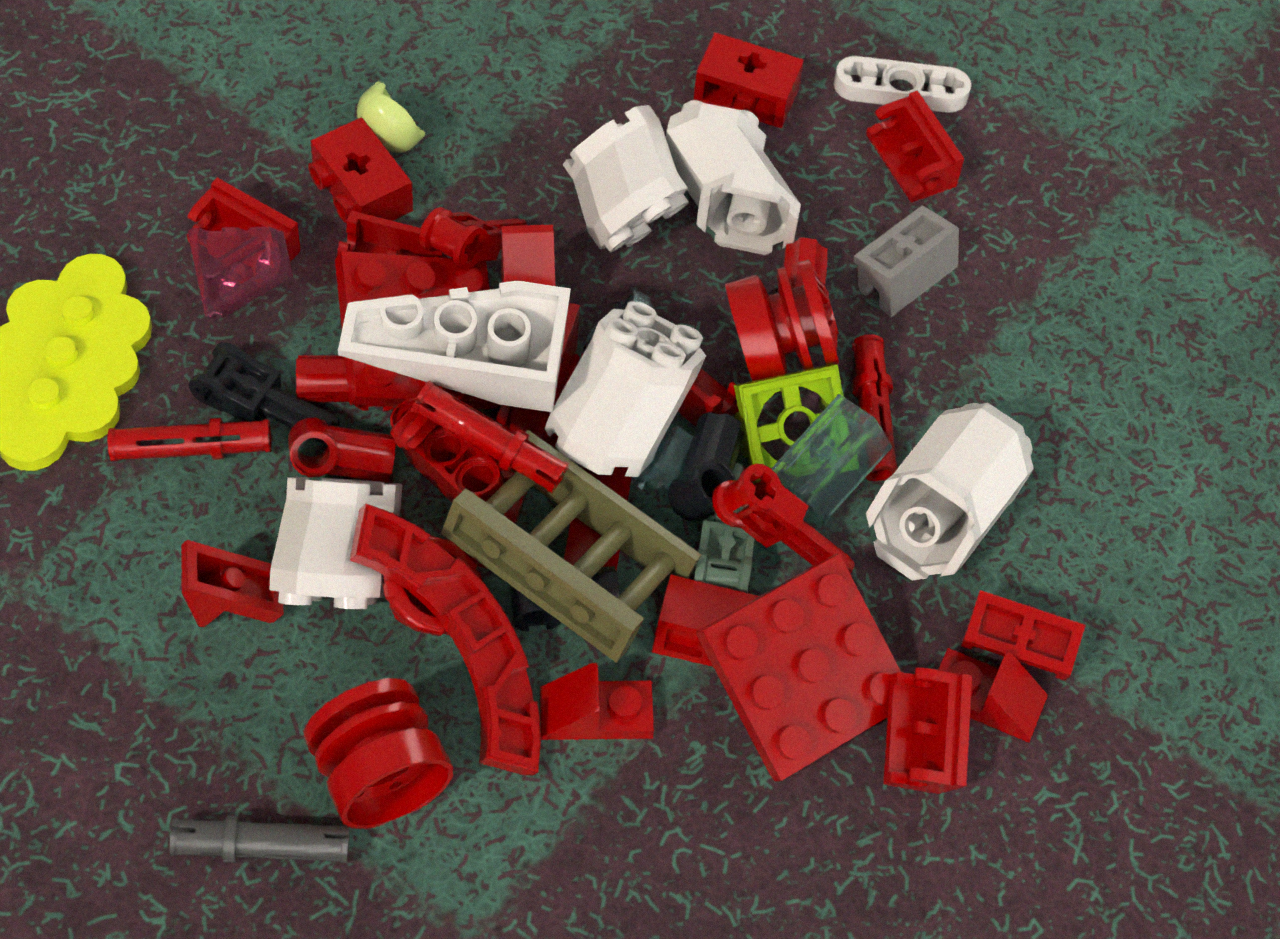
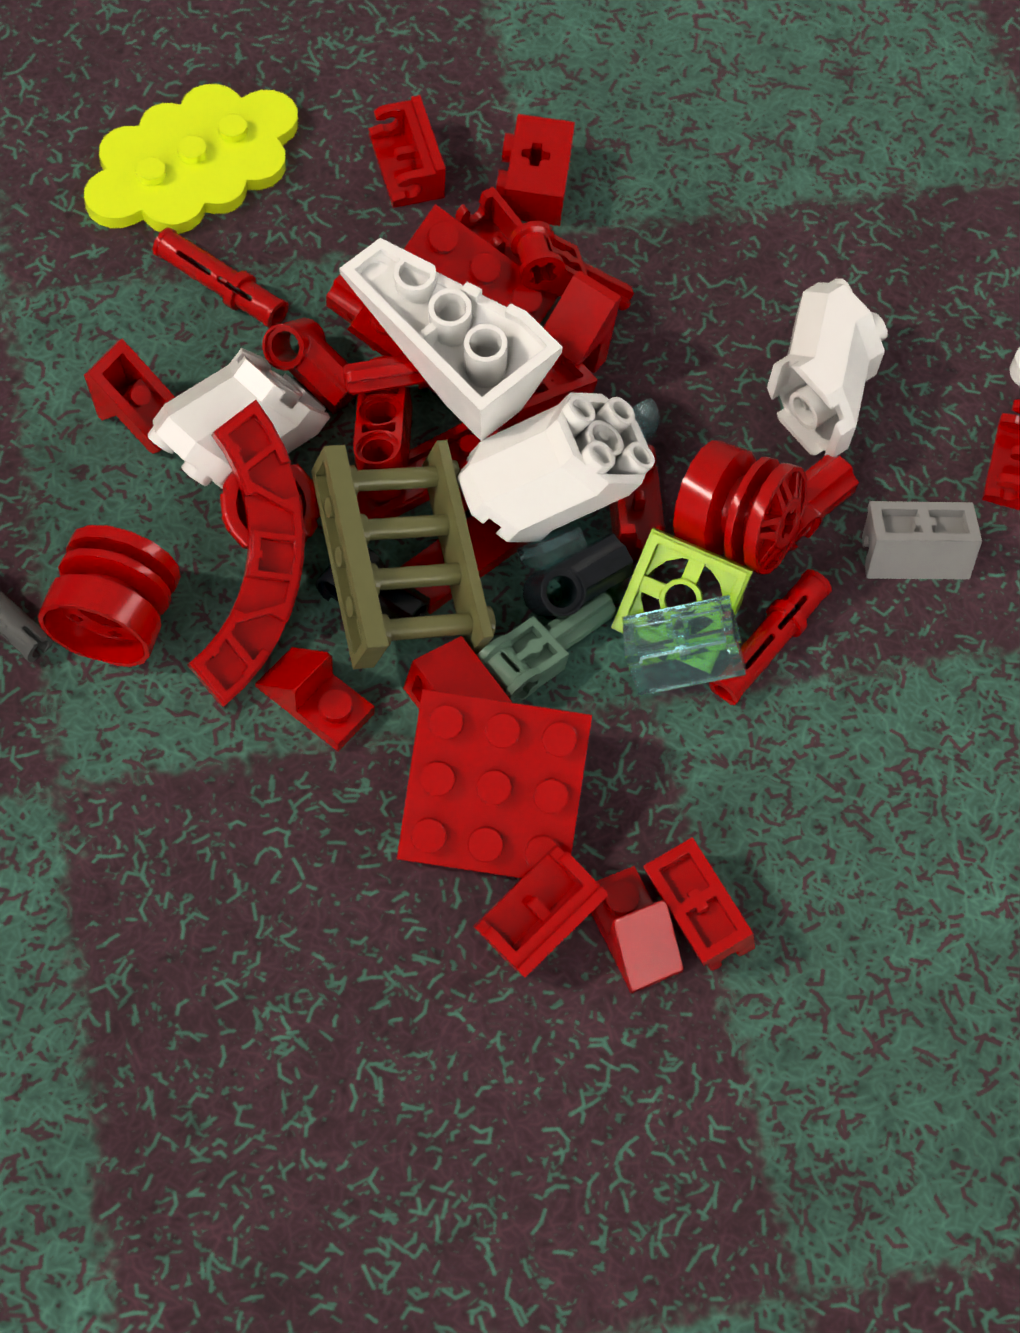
camera: 40 degrees right, 5 degrees up
(237, 266) = (372, 172): clear pink wing -> none
(250, 389) = (299, 275): black connector -> none
(388, 120) = (601, 140): yellowish green hair -> none
(509, 448) = (413, 438): red pin -> none
(626, 179) = (737, 309): white brick -> none
(748, 79) = (932, 303): red brick -> none
(772, 514) = (585, 655): red connector -> none
(950, 491) = (756, 743): white brick -> none

